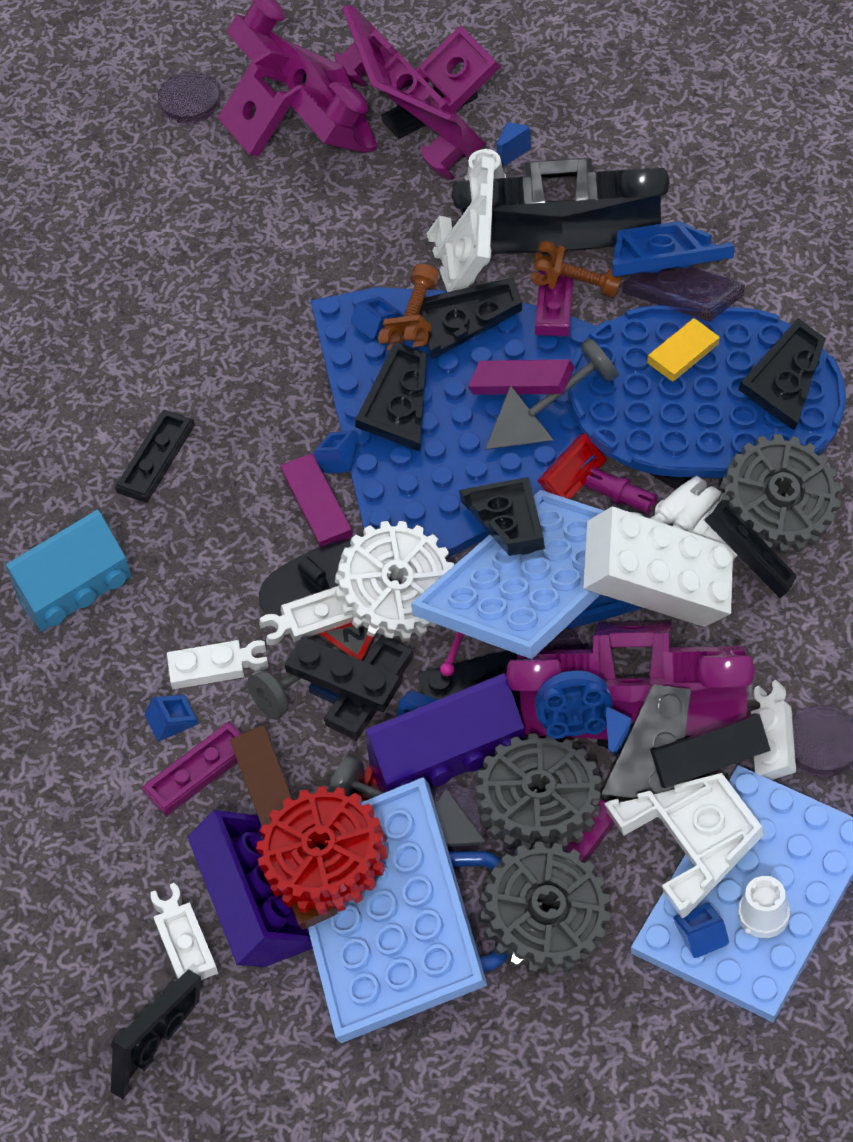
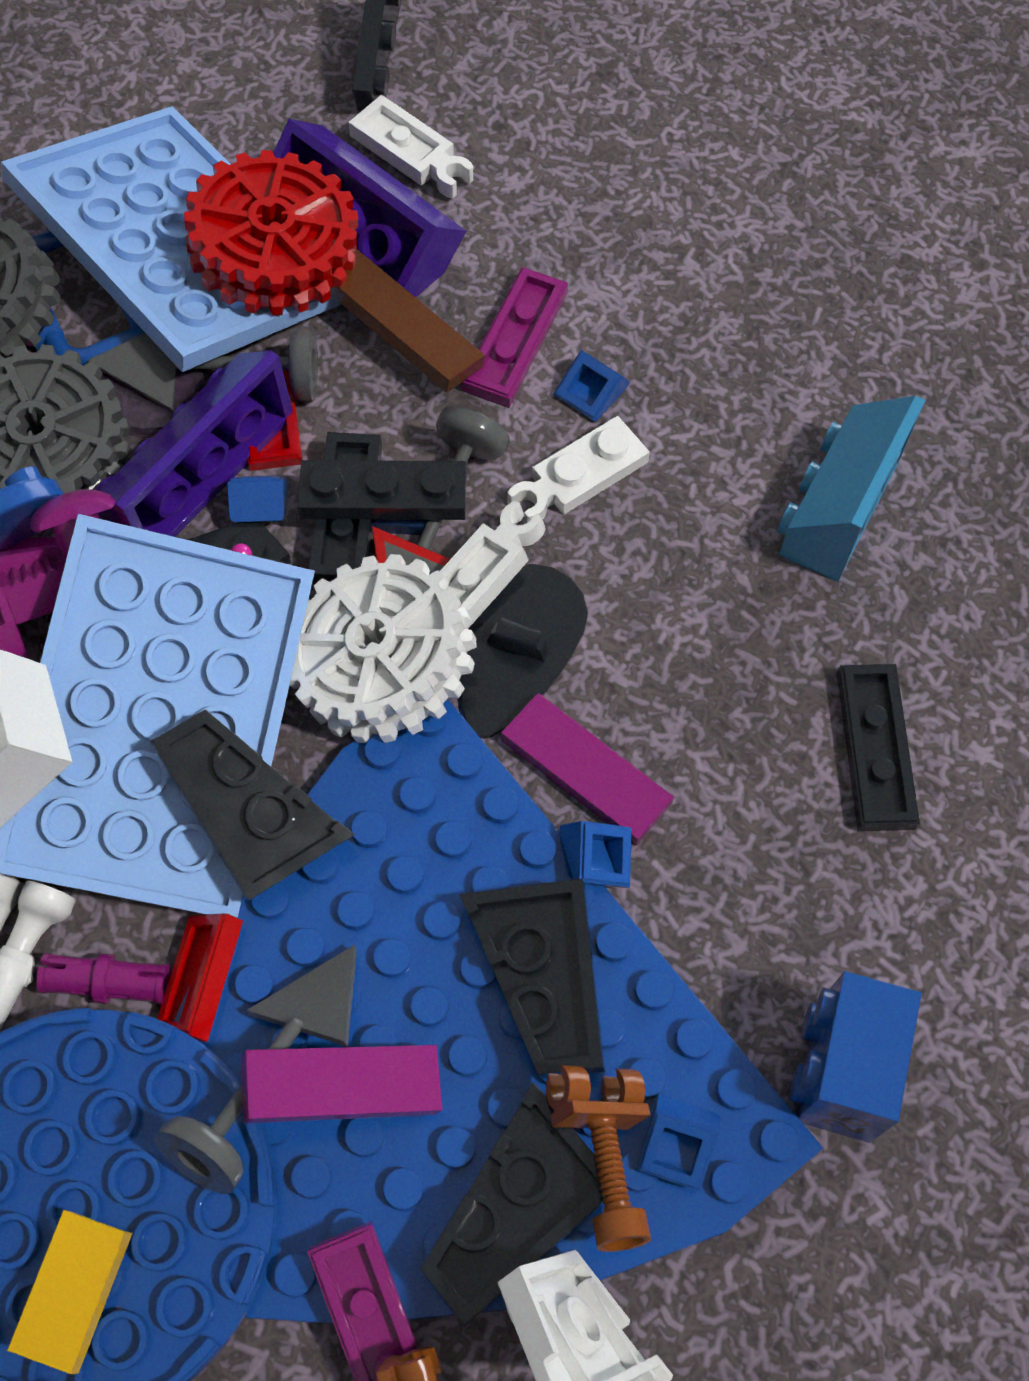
camera: 145 degrees right, 10 degrees up
(273, 311) = (856, 1057): none -> blue brick

